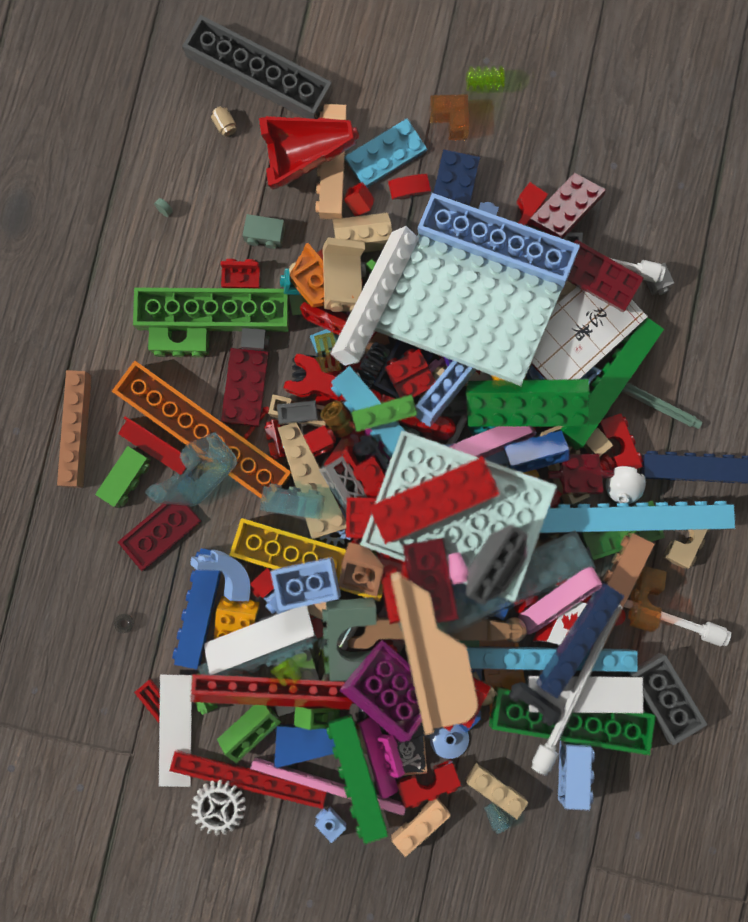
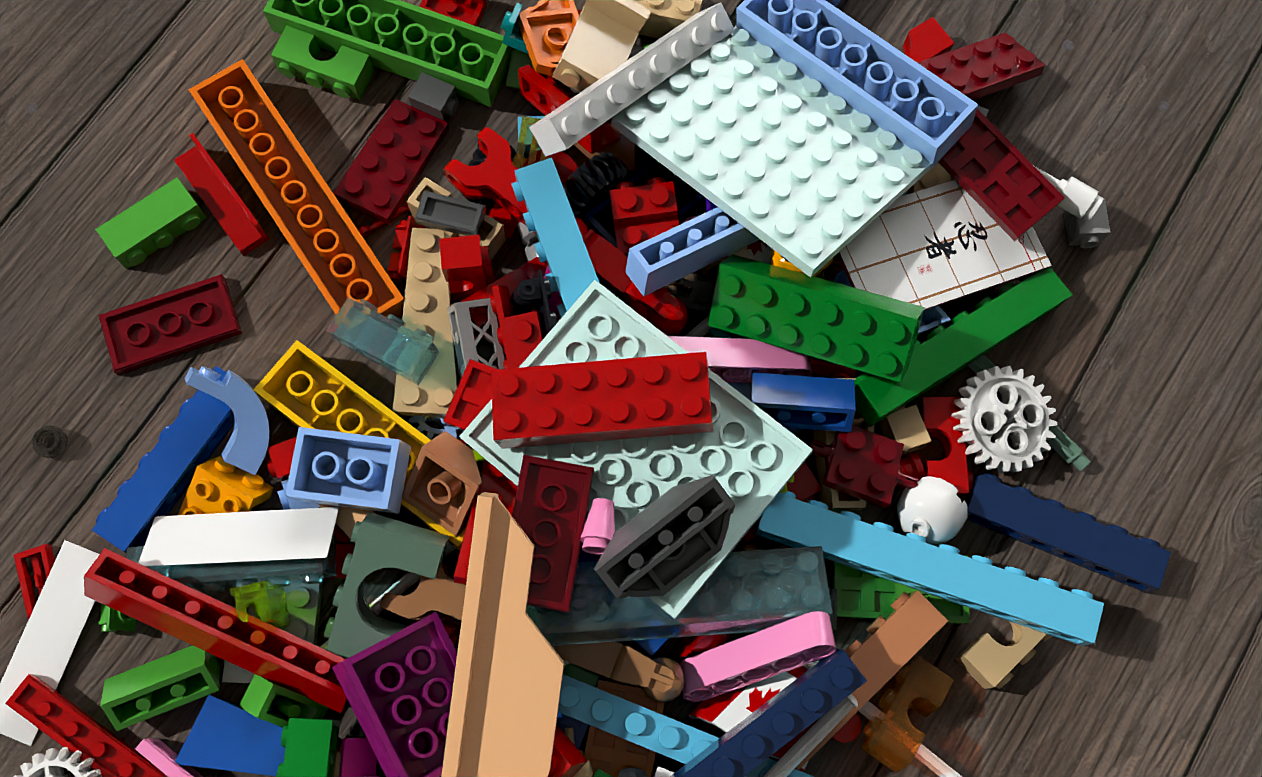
camera: 20 degrees right, 10 degrees down
(74, 429) = (111, 131): nougat brick -> none
(207, 464) = (265, 245): clear light blue windscreen -> none
(338, 419) = (508, 243): pearl gold wheel -> none
(383, 413) = (575, 242): bright green brick -> none
(648, 417) = (1026, 436): none -> white gear

